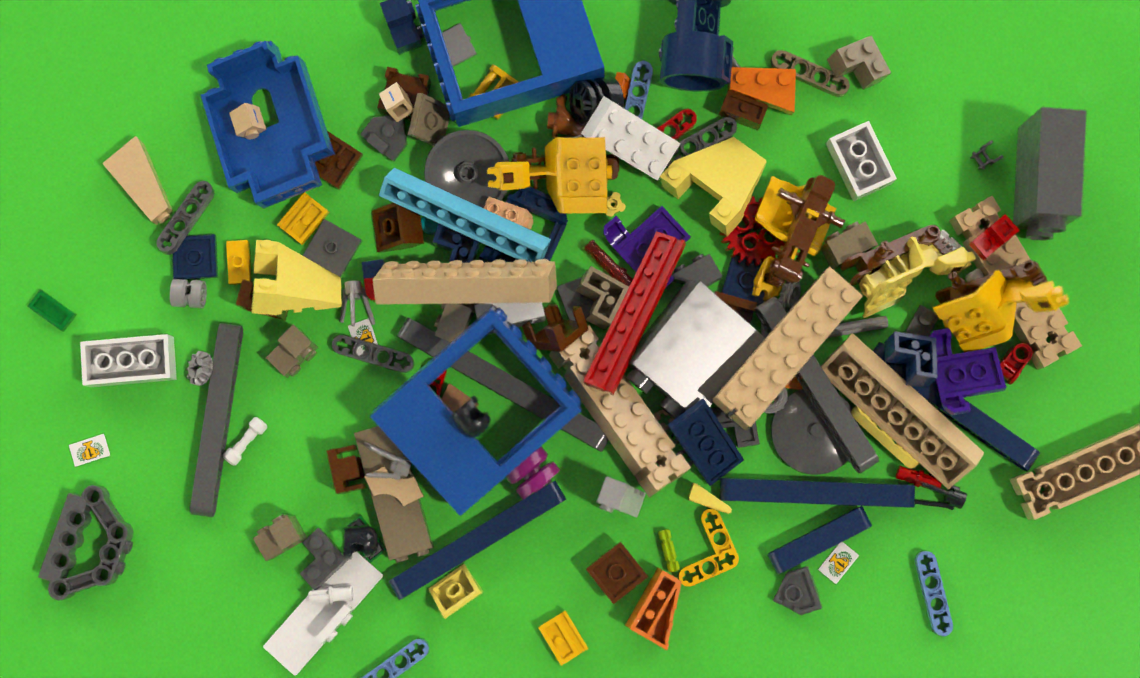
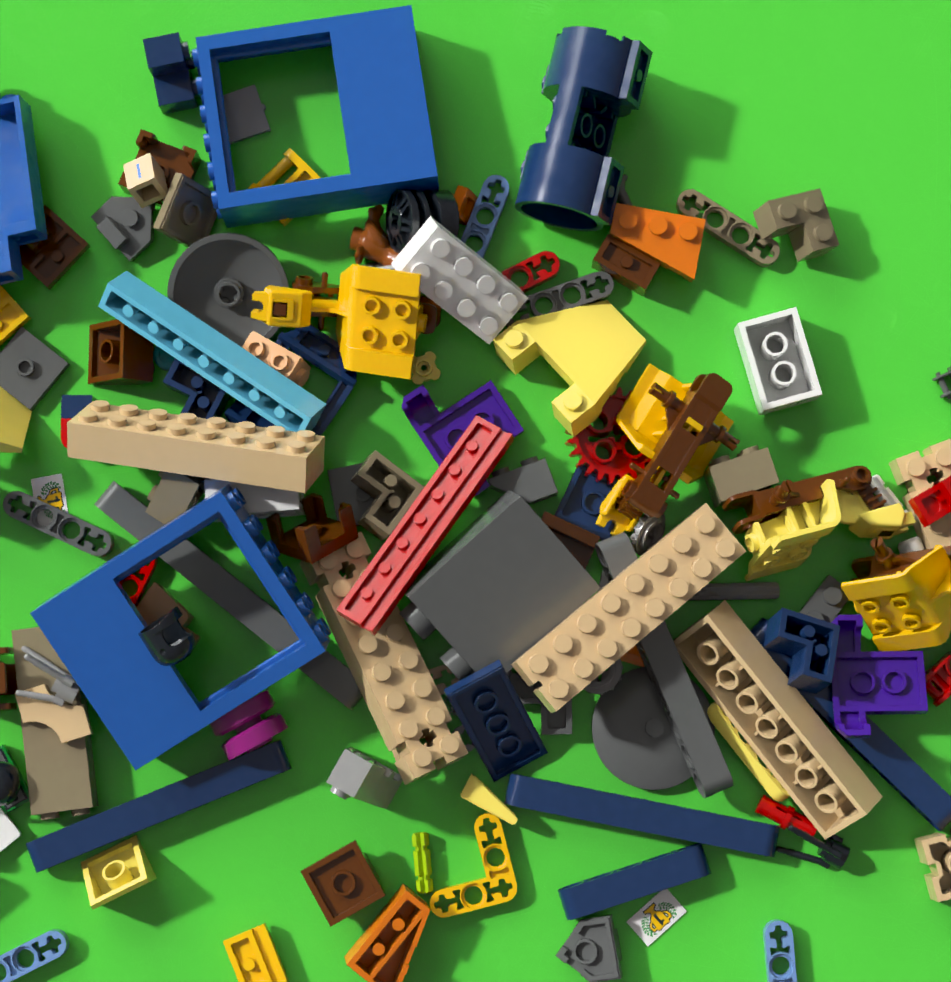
camera: 10 degrees right, 0 degrees up
(352, 292) = (44, 434): light grey plant -> none
(607, 263) = (398, 443): clear red pin -> none

